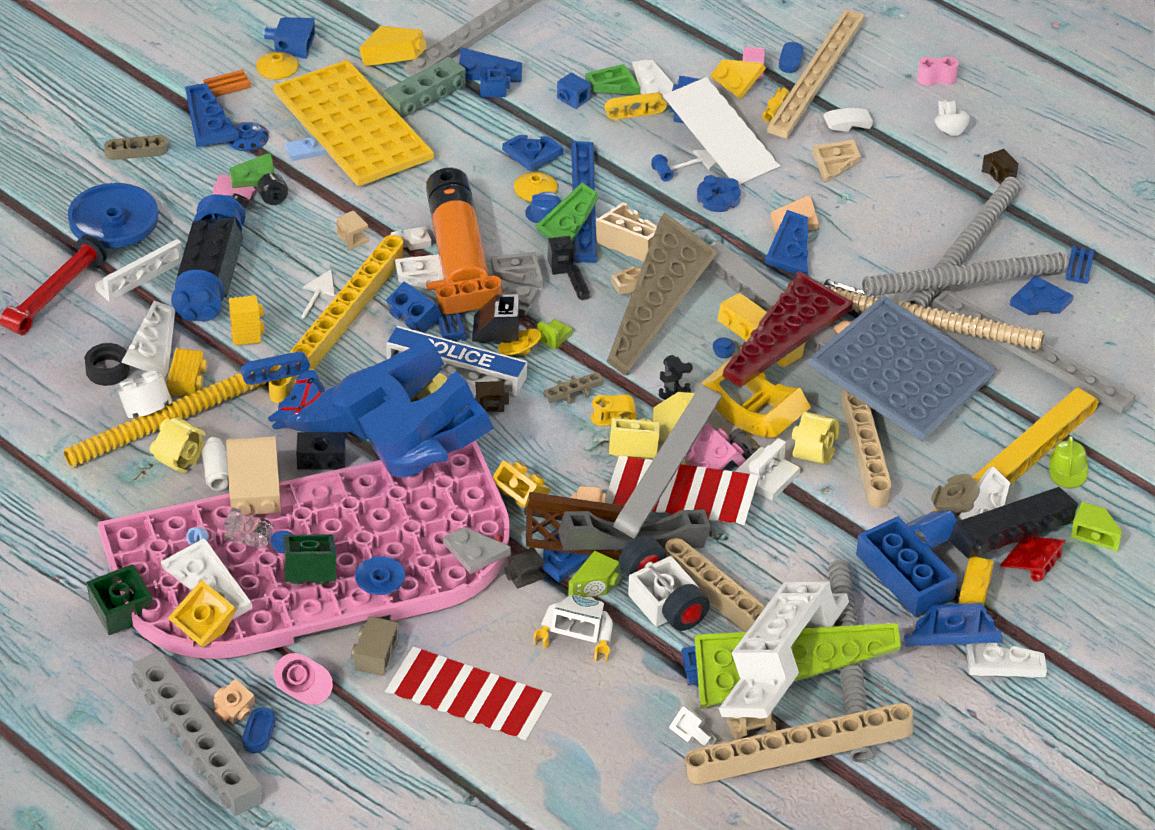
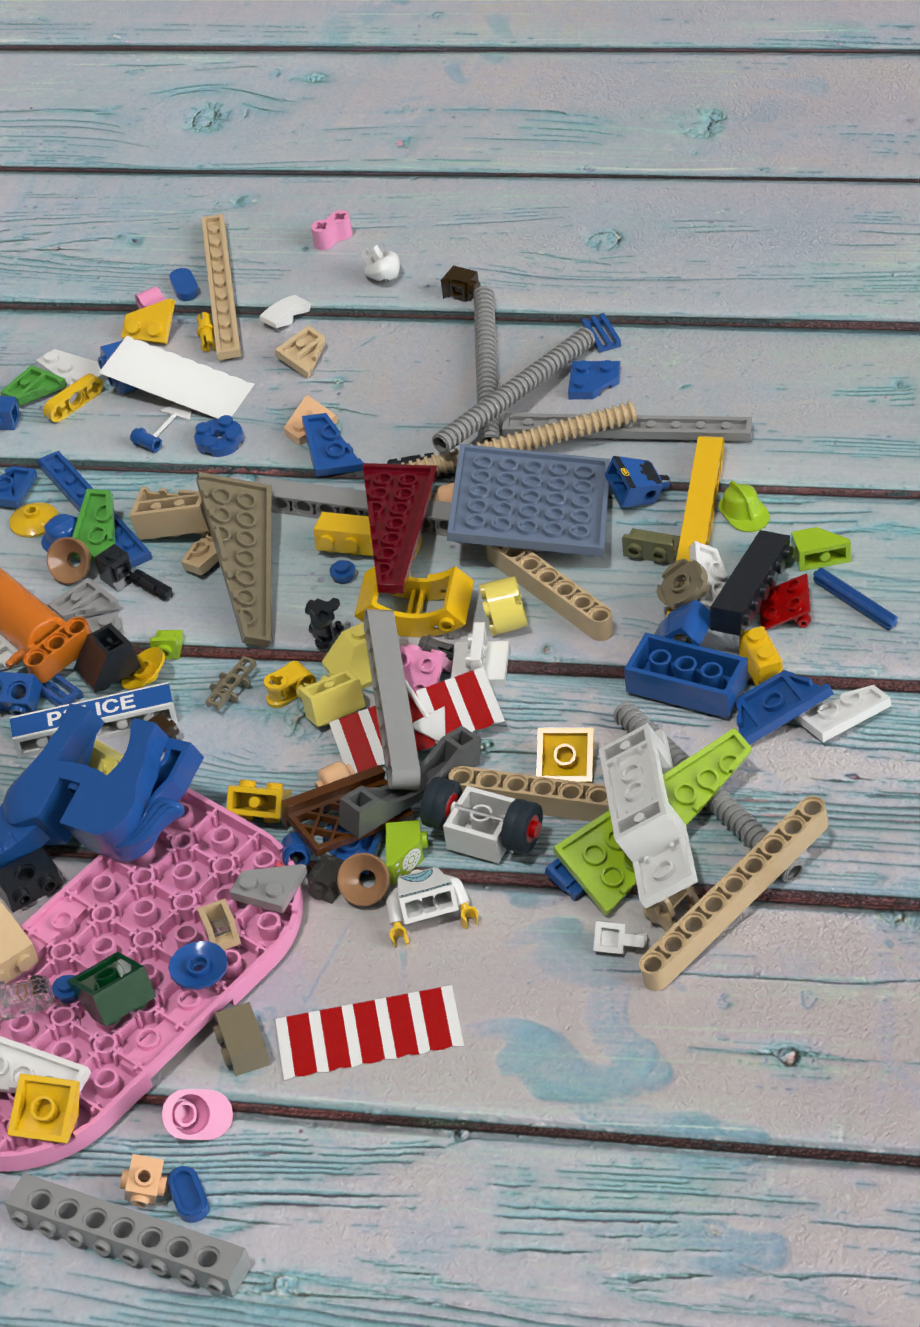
camera: 25 degrees left, 0 degrees up
(416, 555) = (219, 924): none -> tan window
(517, 535) = (295, 849): none -> blue brick
(525, 229) = (59, 560): none -> medium nougat piece
(538, 580) = (350, 883): none -> medium nougat piece
(690, 497) = (431, 724): none -> white piece
(766, 573) = (566, 754): none -> yellow slope
(968, 452) = (650, 546): none -> olive bracket
(998, 397) = (635, 481): none -> blue torso
(1092, 581) = (855, 598): none -> blue axle

